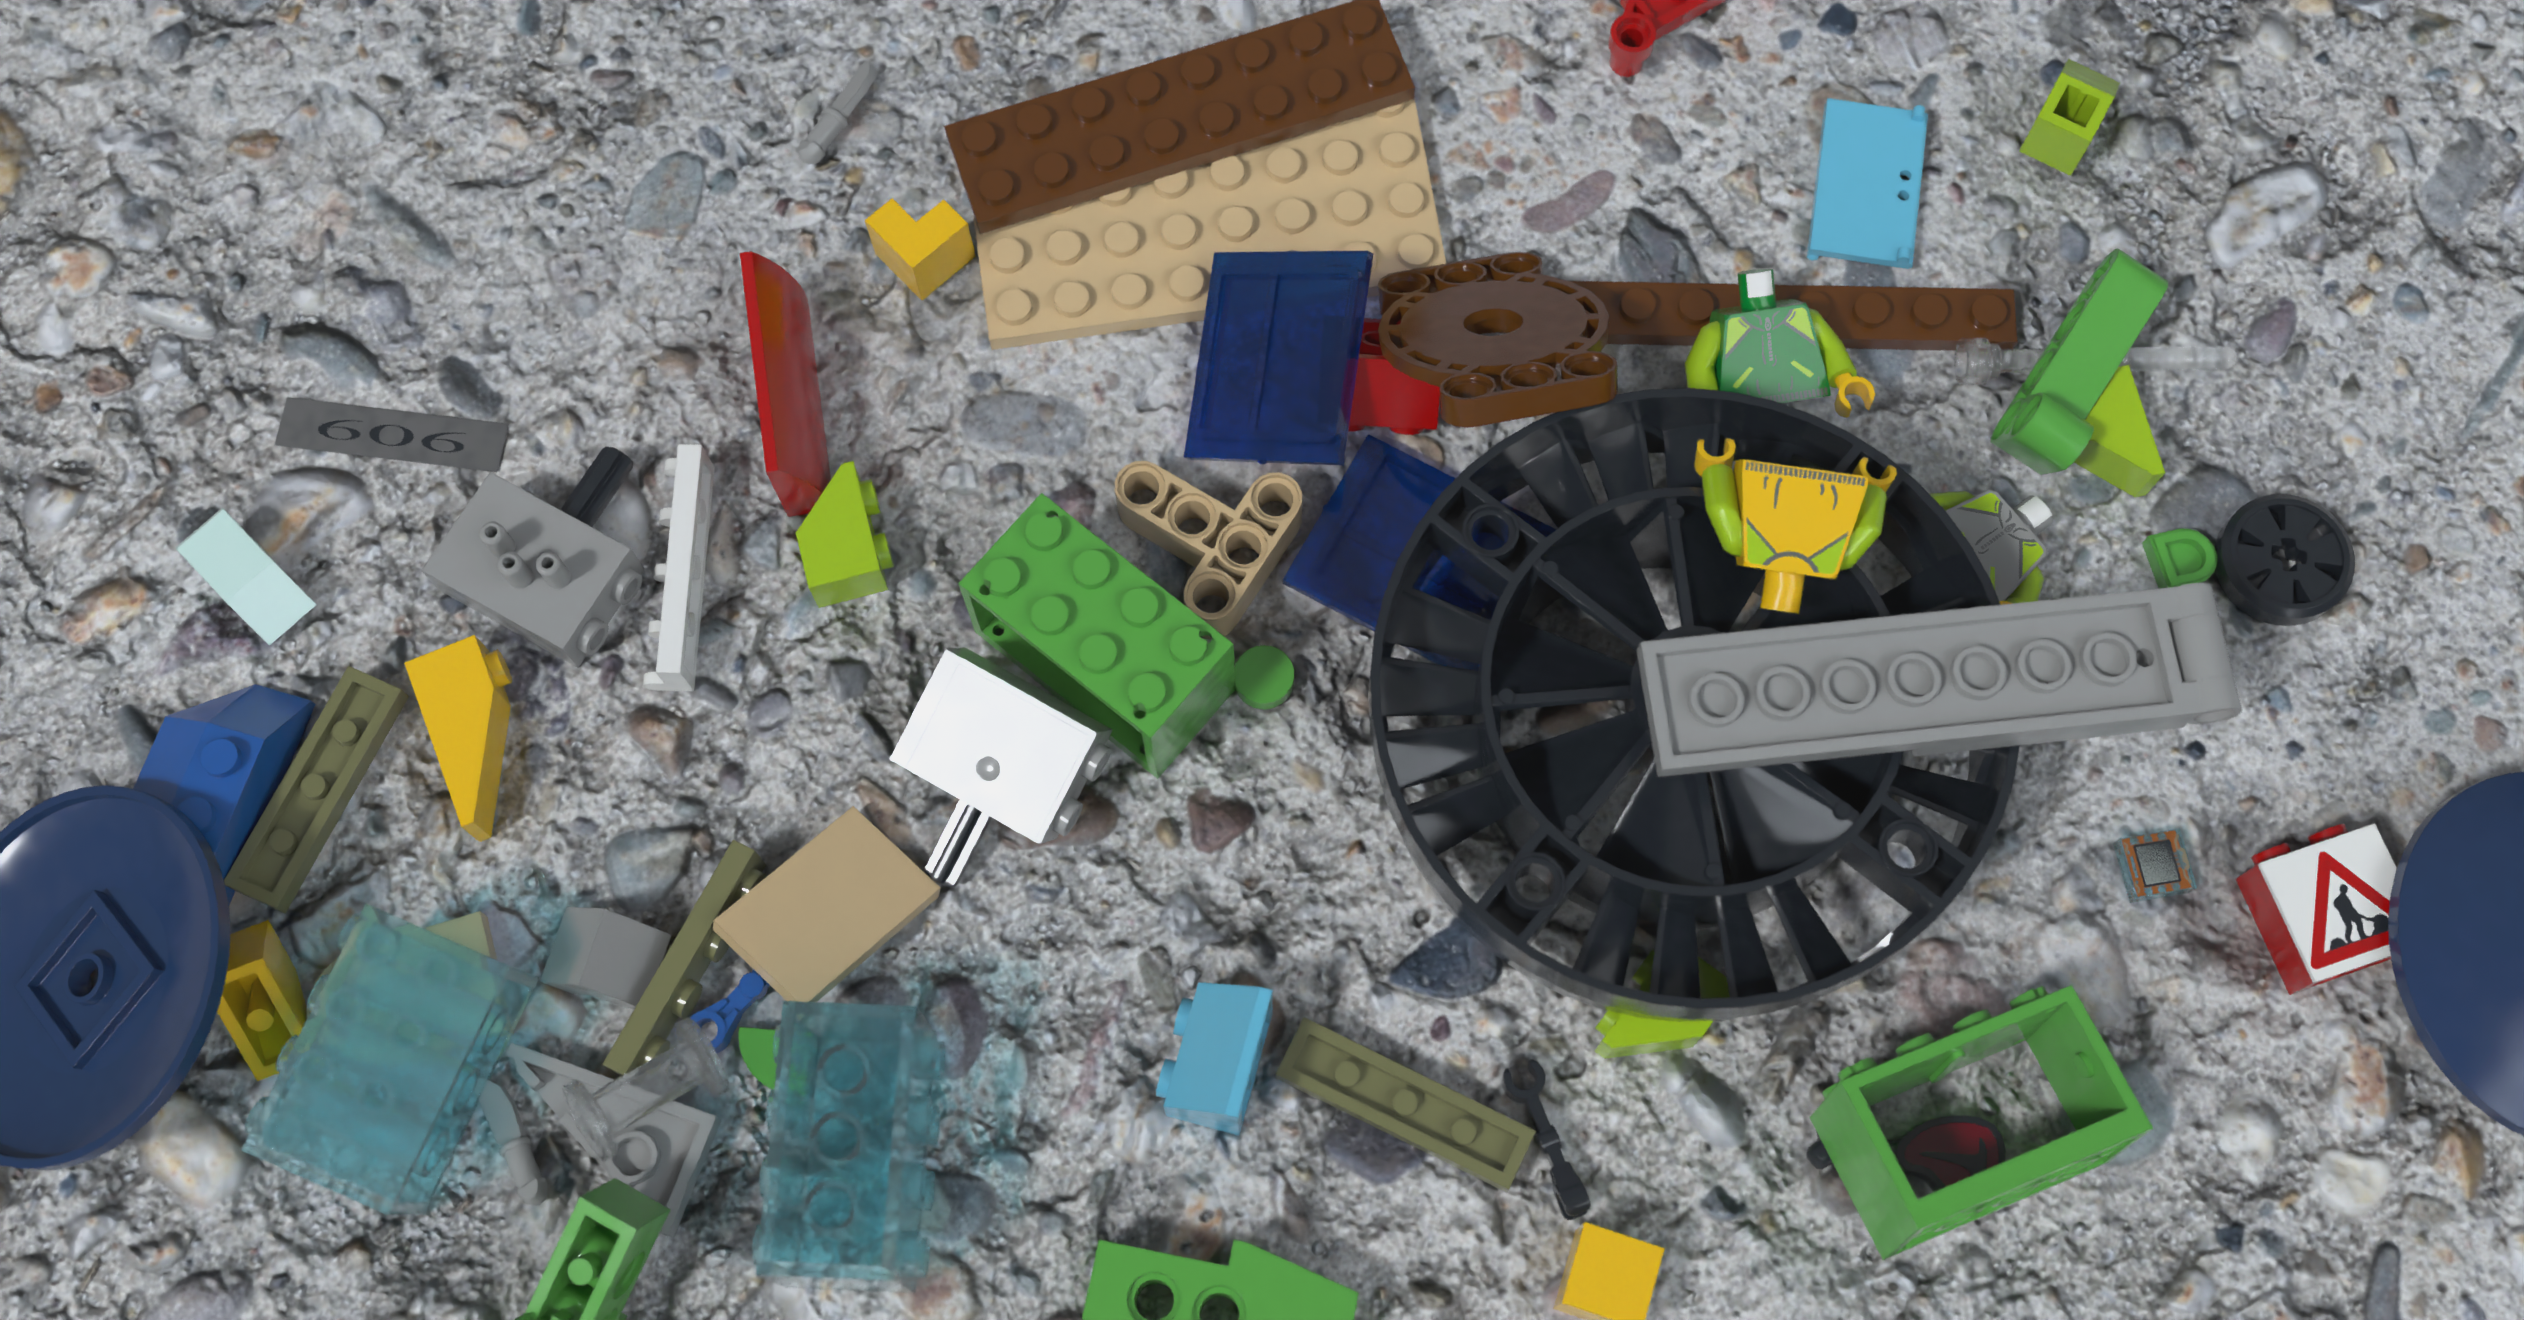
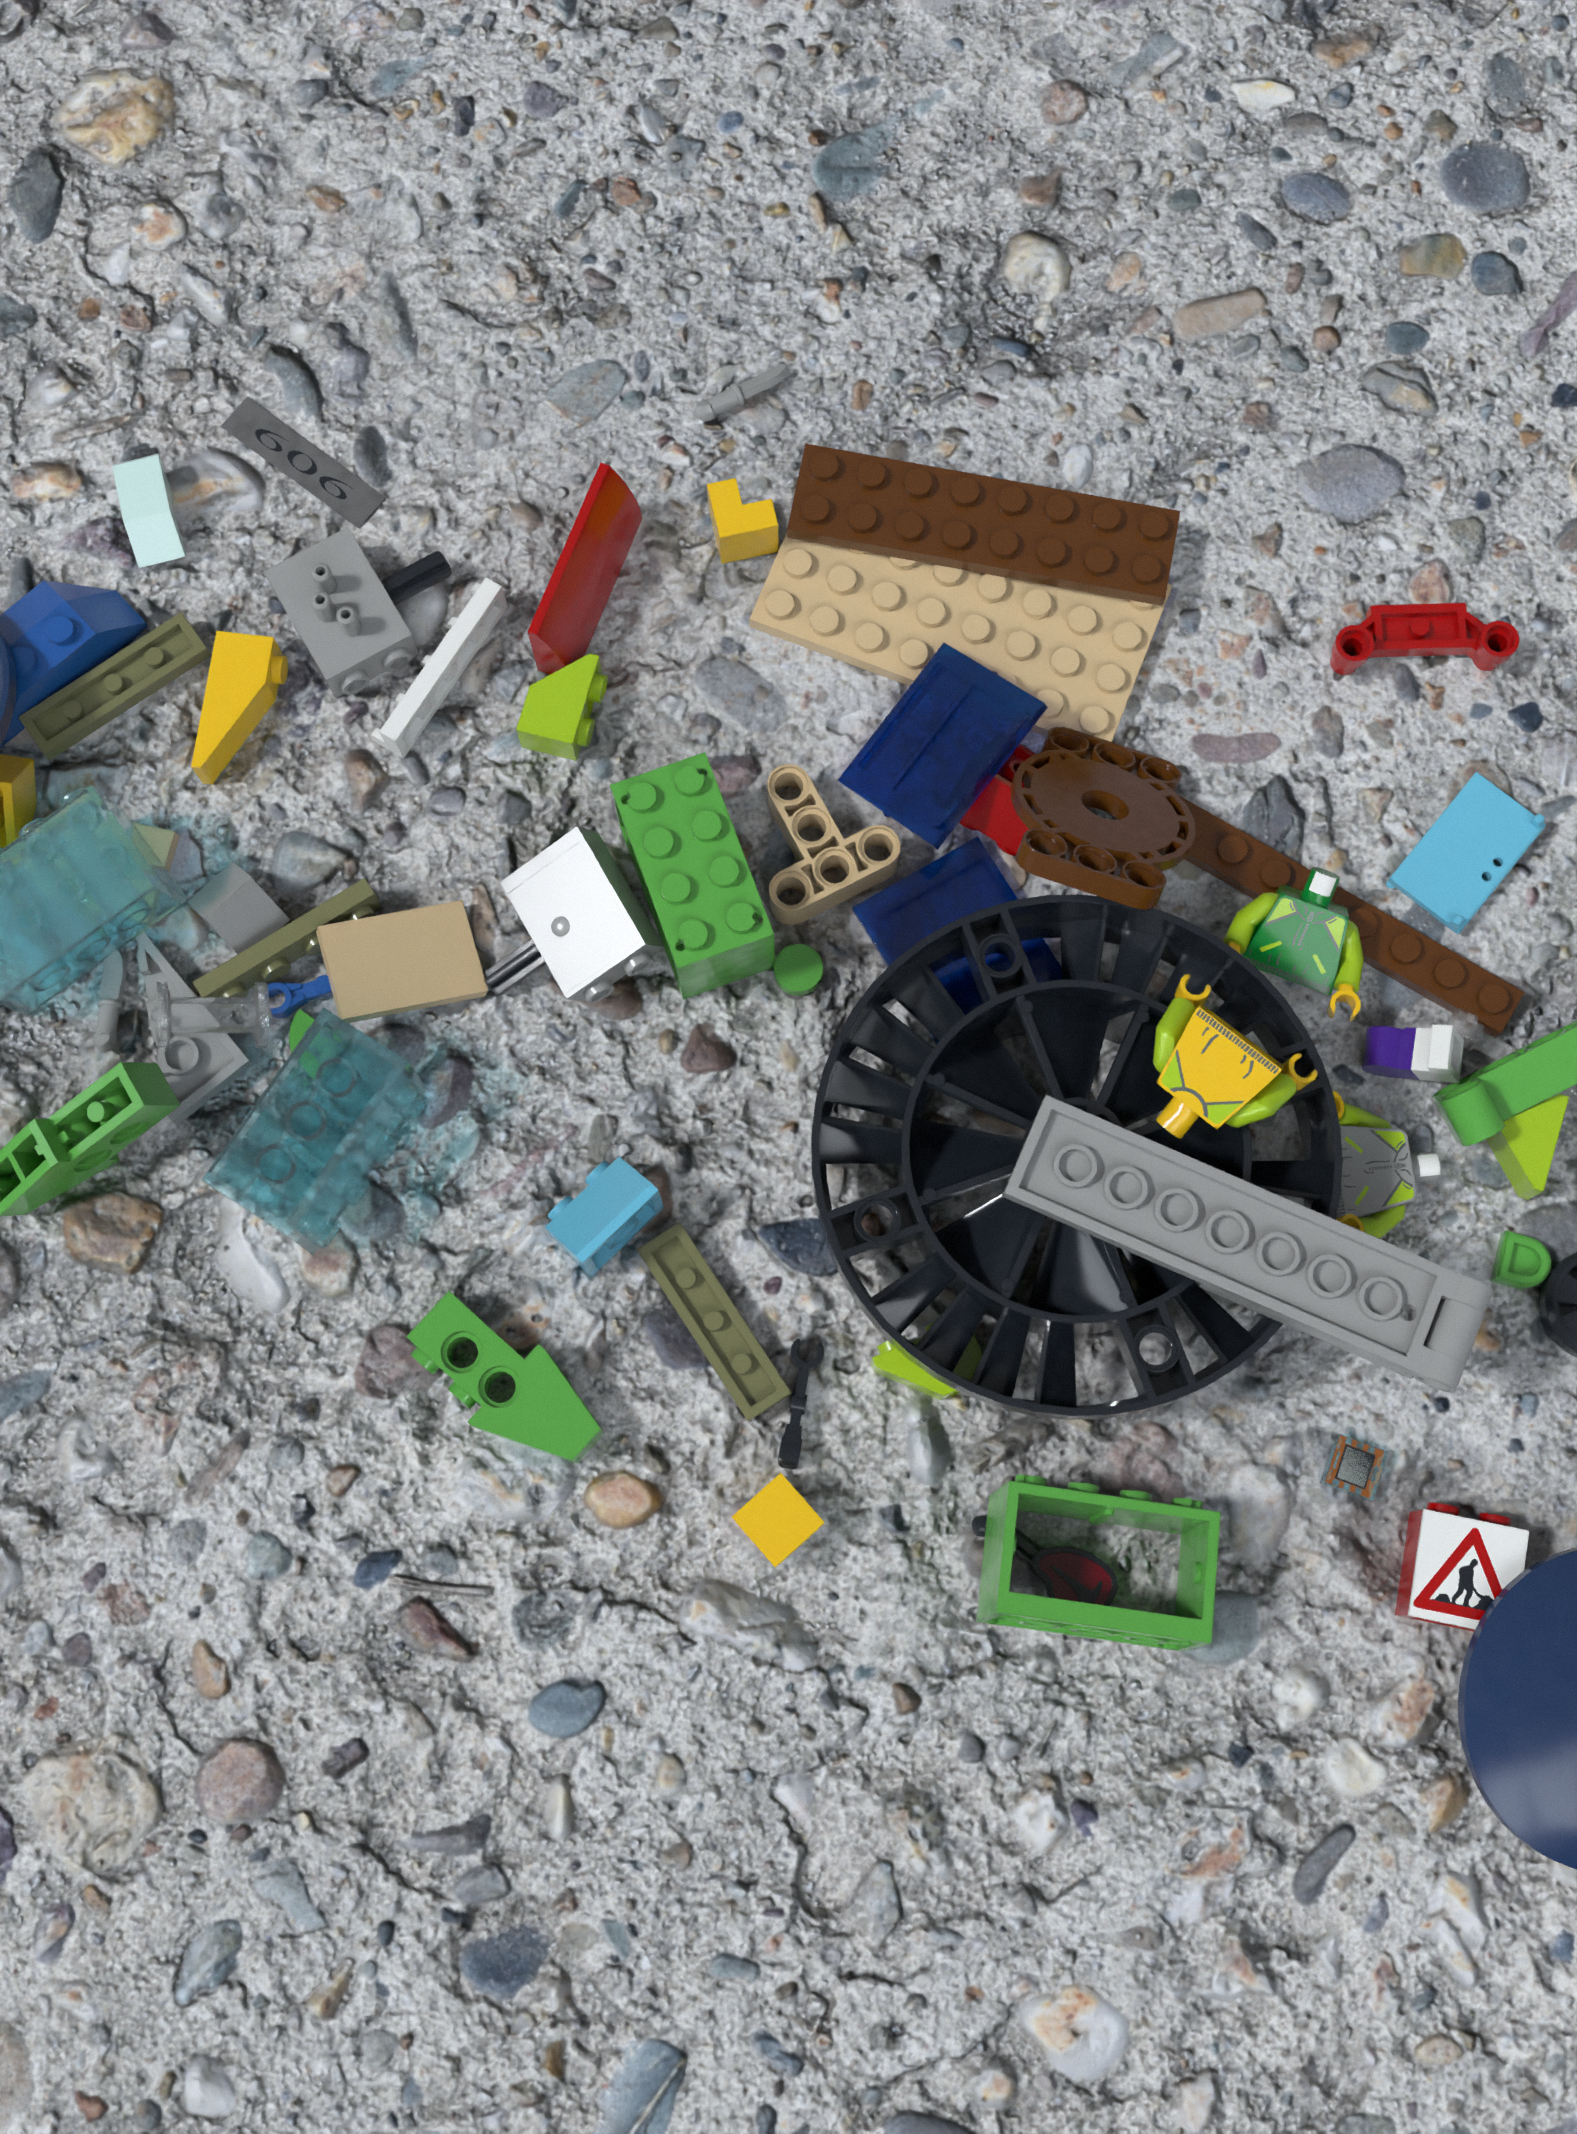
camera: 30 degrees right, 5 degrees up
(1947, 408) = (1414, 1053): none -> leg

